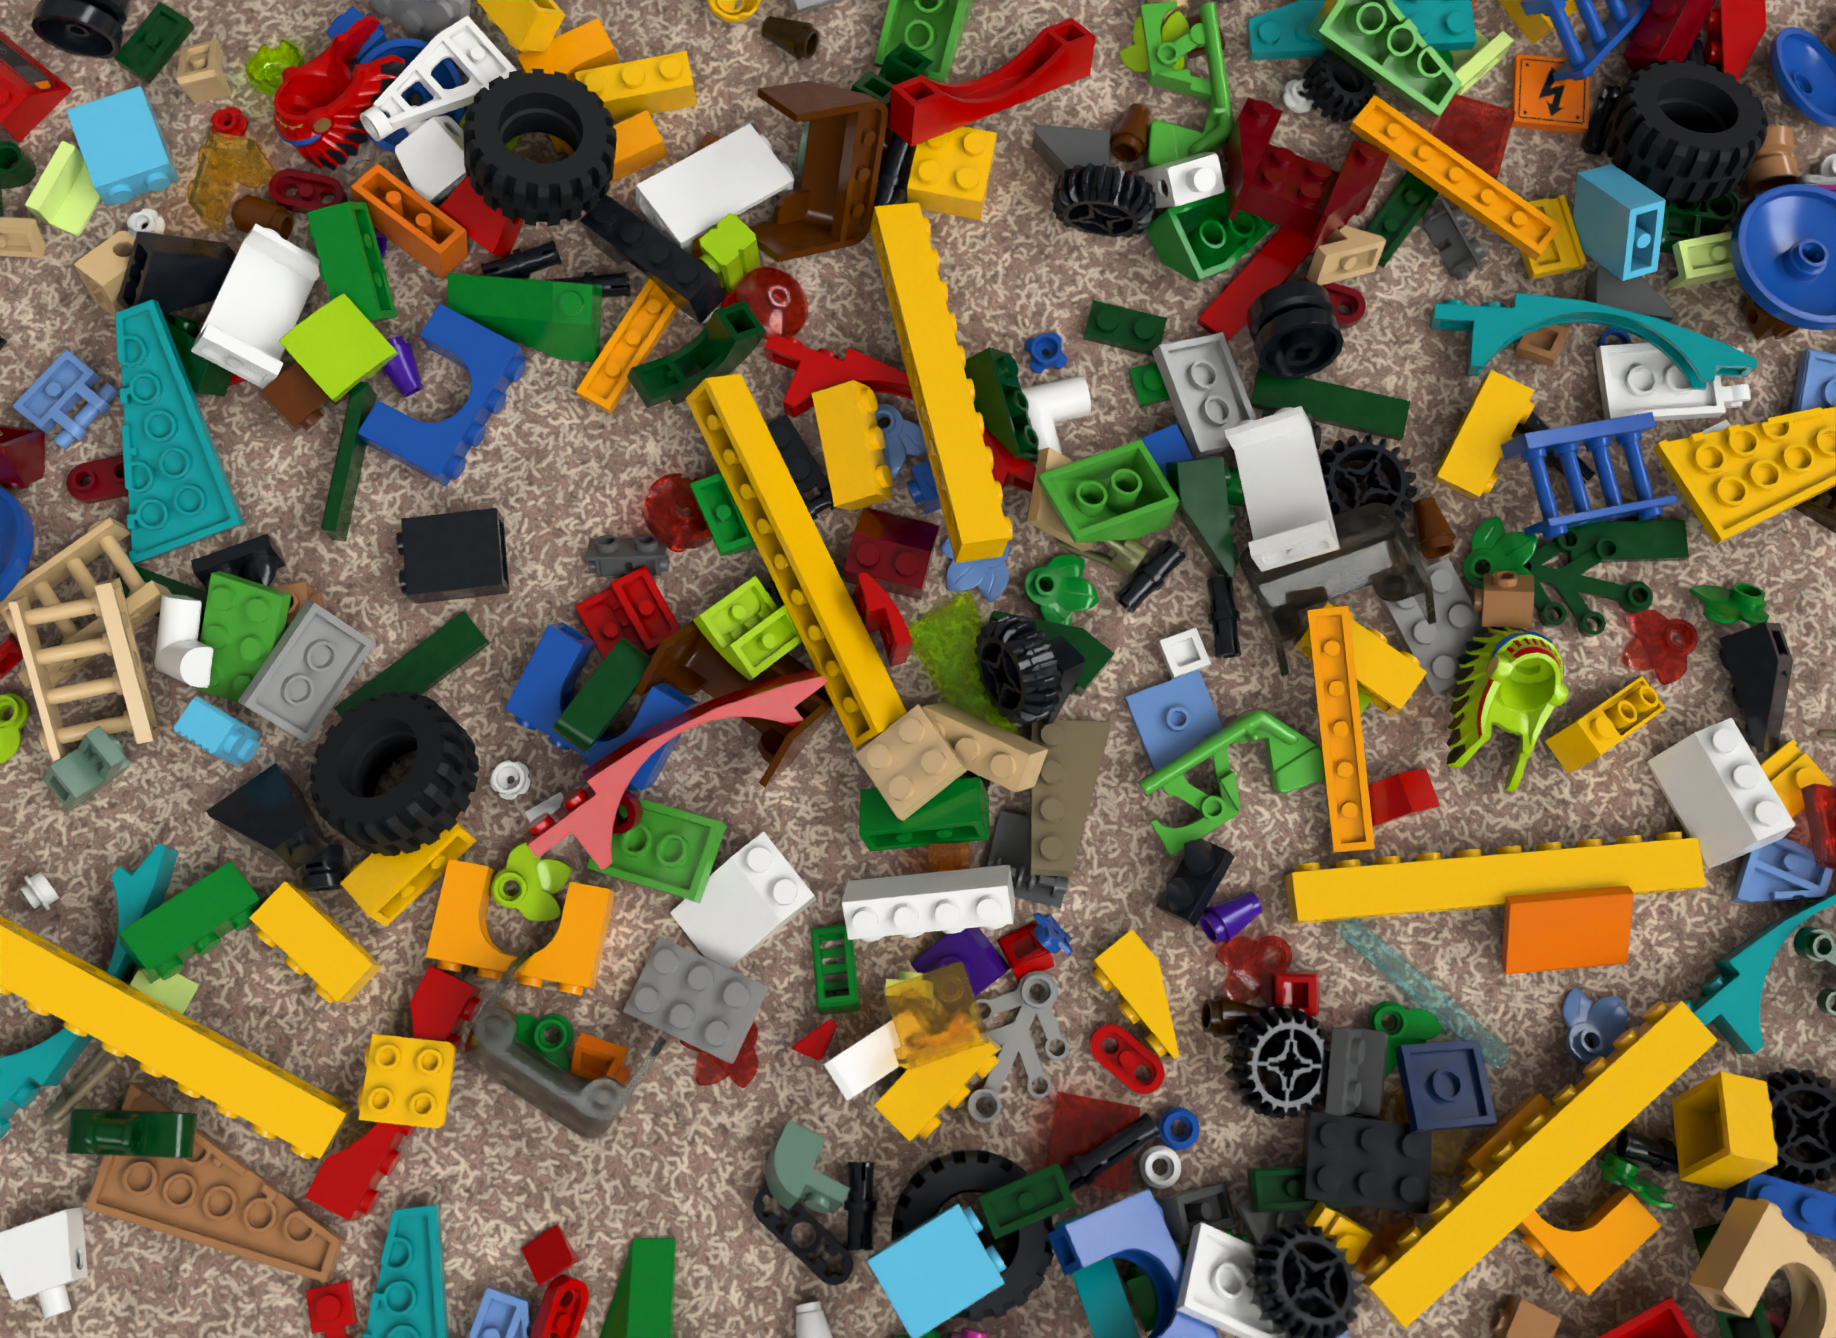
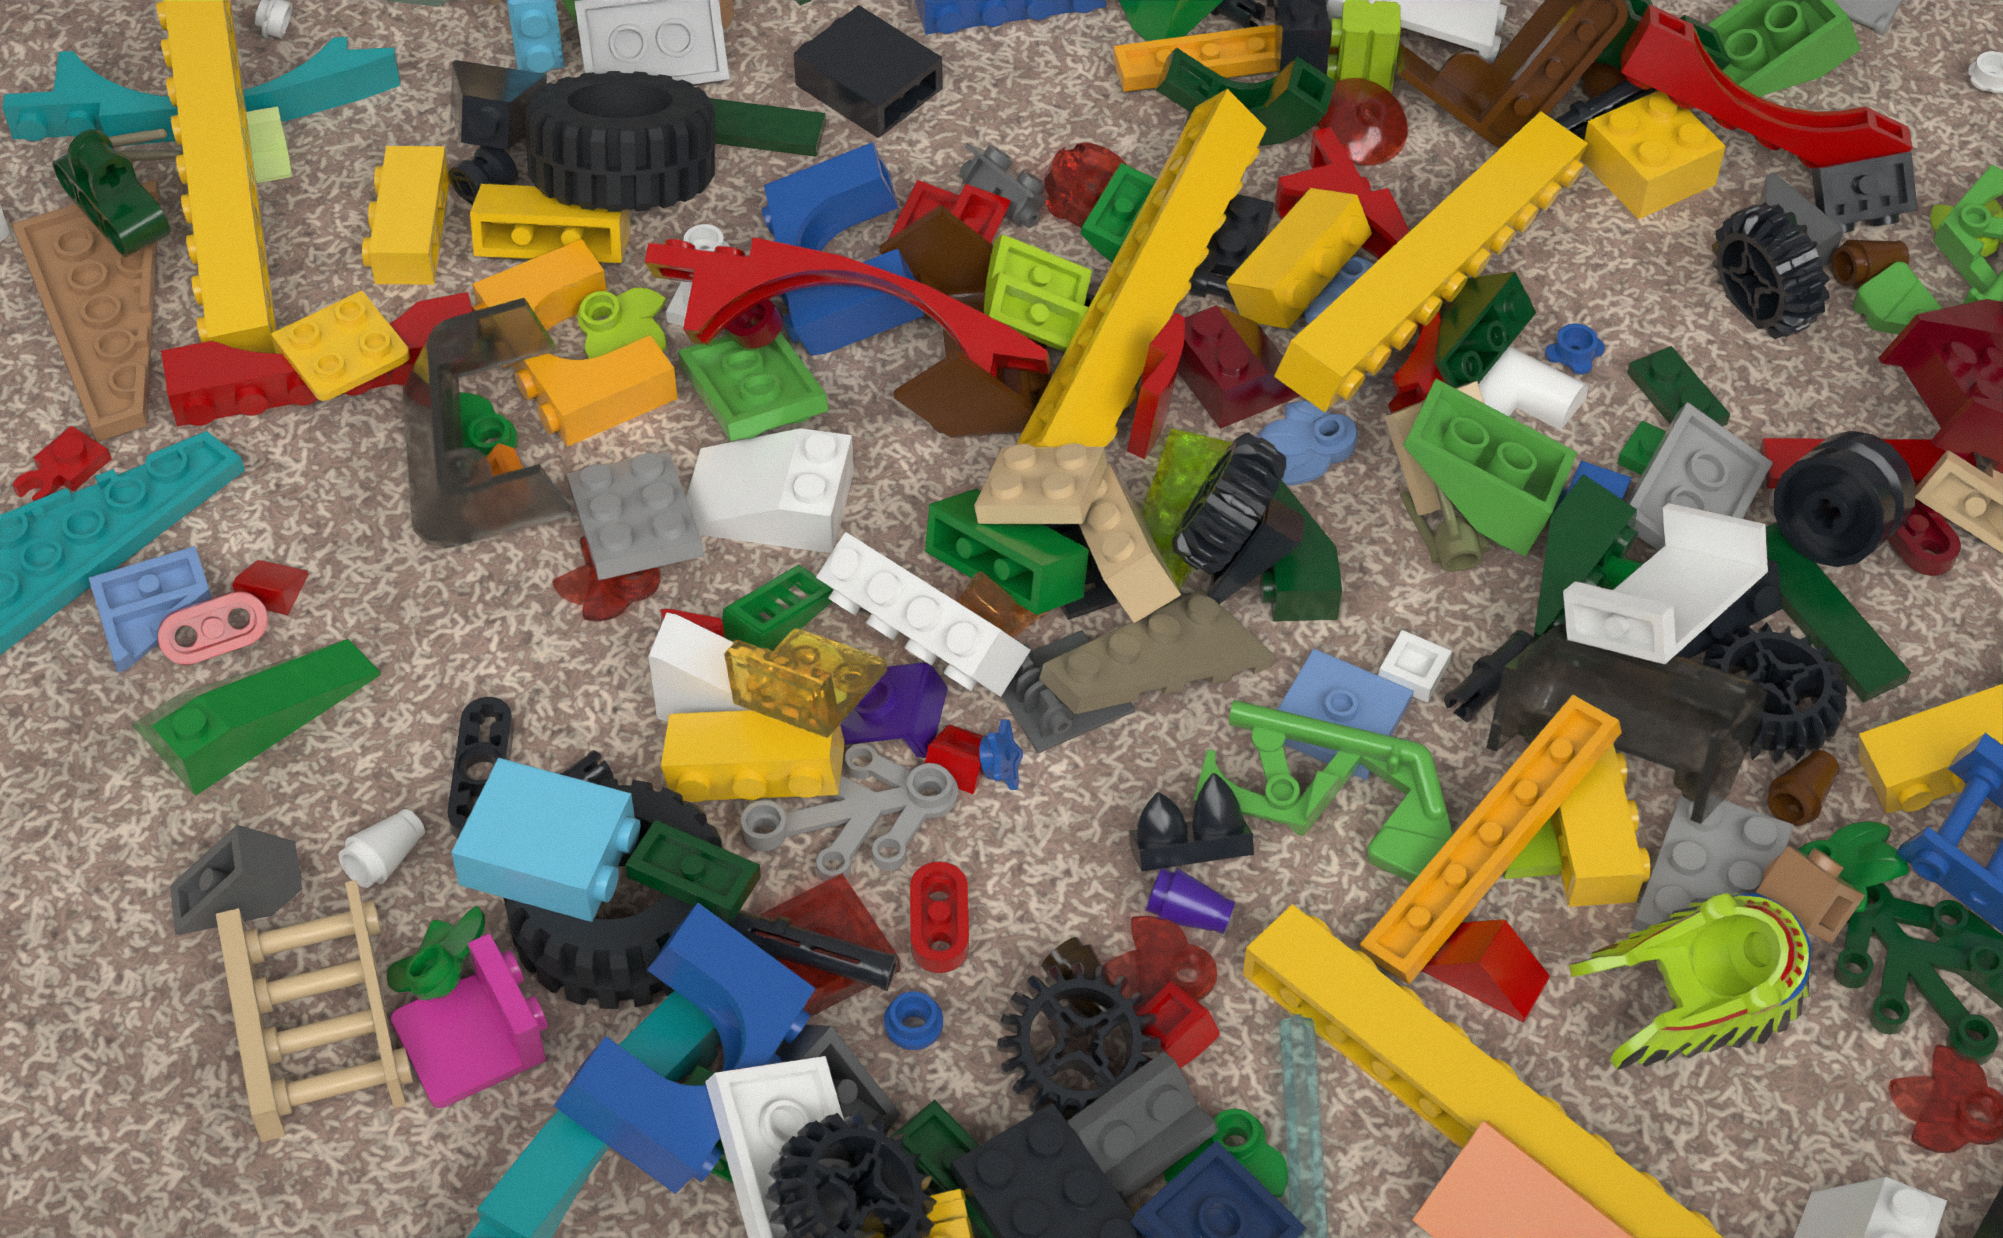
camera: 50 degrees right, 25 degrees down
(190, 923) = (340, 109): green brick -> none
(603, 695) = (846, 223): dark green piece -> none
(792, 1175) = (541, 700): sand green brick -> none
(1066, 589) = (1364, 527): green plate -> none
(1092, 88) = (1866, 190): none -> black bracket
(1138, 982) = (1031, 866): yellow slope -> none
(1150, 576) = (1459, 585): black pin -> none
(1173, 1167) = (864, 1019): white plate -> none
(1186, 179) = (1869, 310): white torso -> none
(1202, 239) = (1840, 372): green wedge -> none
(1605, 725) = (1790, 1103): yellow slope -> none

